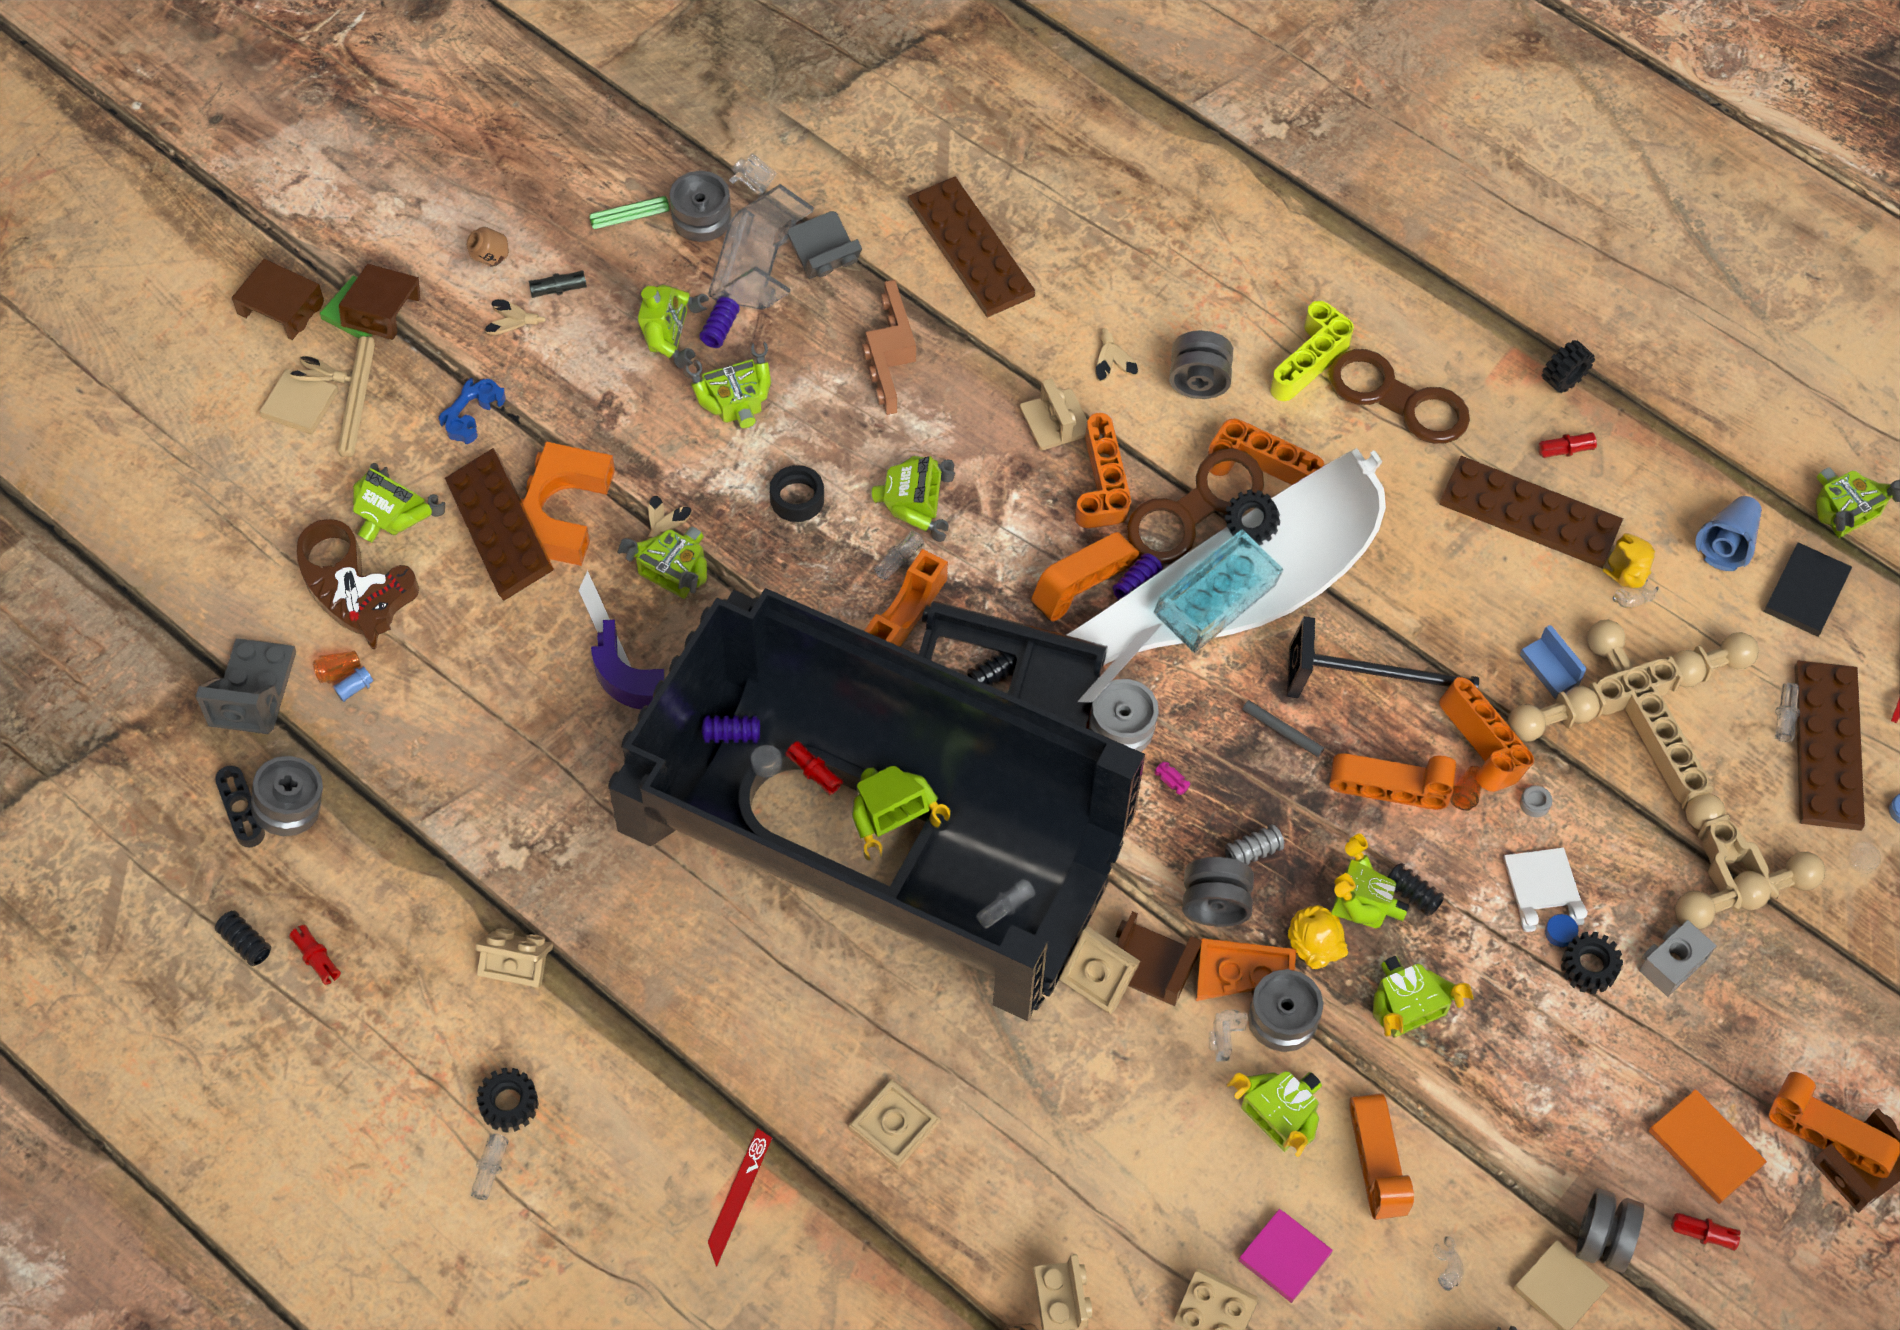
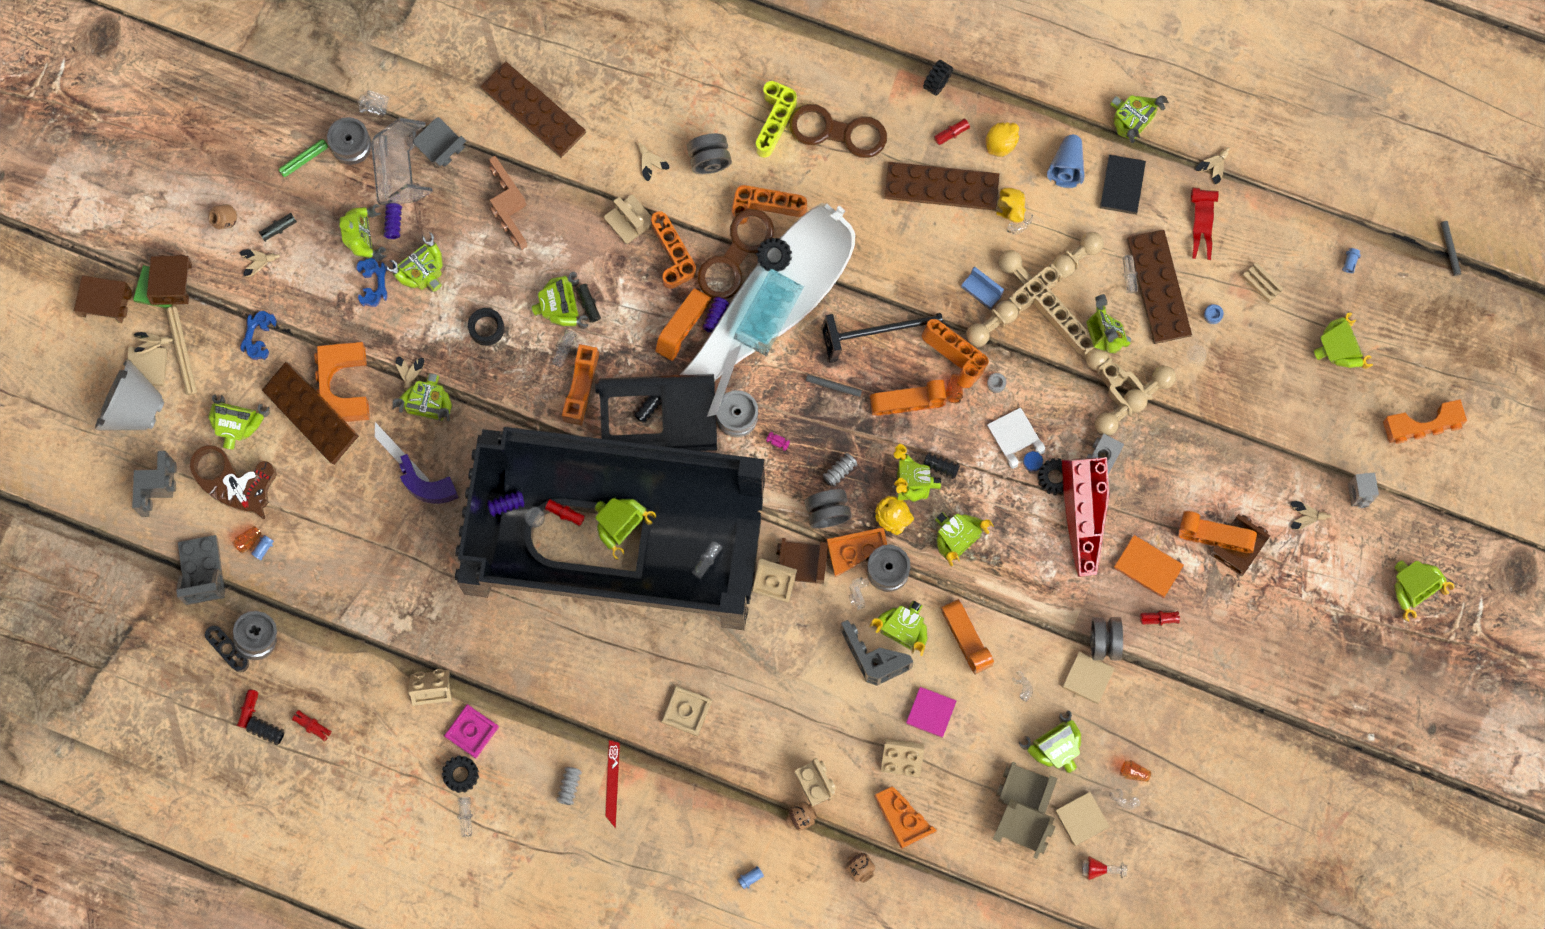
camera: 15 degrees left, 15 degrees up
(232, 898) = (248, 708): none -> red axle
(236, 547) = (154, 484): none -> dark grey bracket
(251, 428) = (130, 402): none -> light grey cone
(550, 1043) = (471, 731): none -> dark pink tile
(649, 410) = (372, 298): none -> blue helmet
(668, 1174) = (569, 786): none -> light grey piece
(956, 507) = (588, 303): none -> pearl dark grey pin
(1227, 1159) = (889, 662): none -> dark grey bracket
(1628, 1023) = (1086, 509): none -> red wedge
(1641, 473) = (1002, 139): none -> yellow hair
(1731, 775) = (1106, 331): none -> lime torso

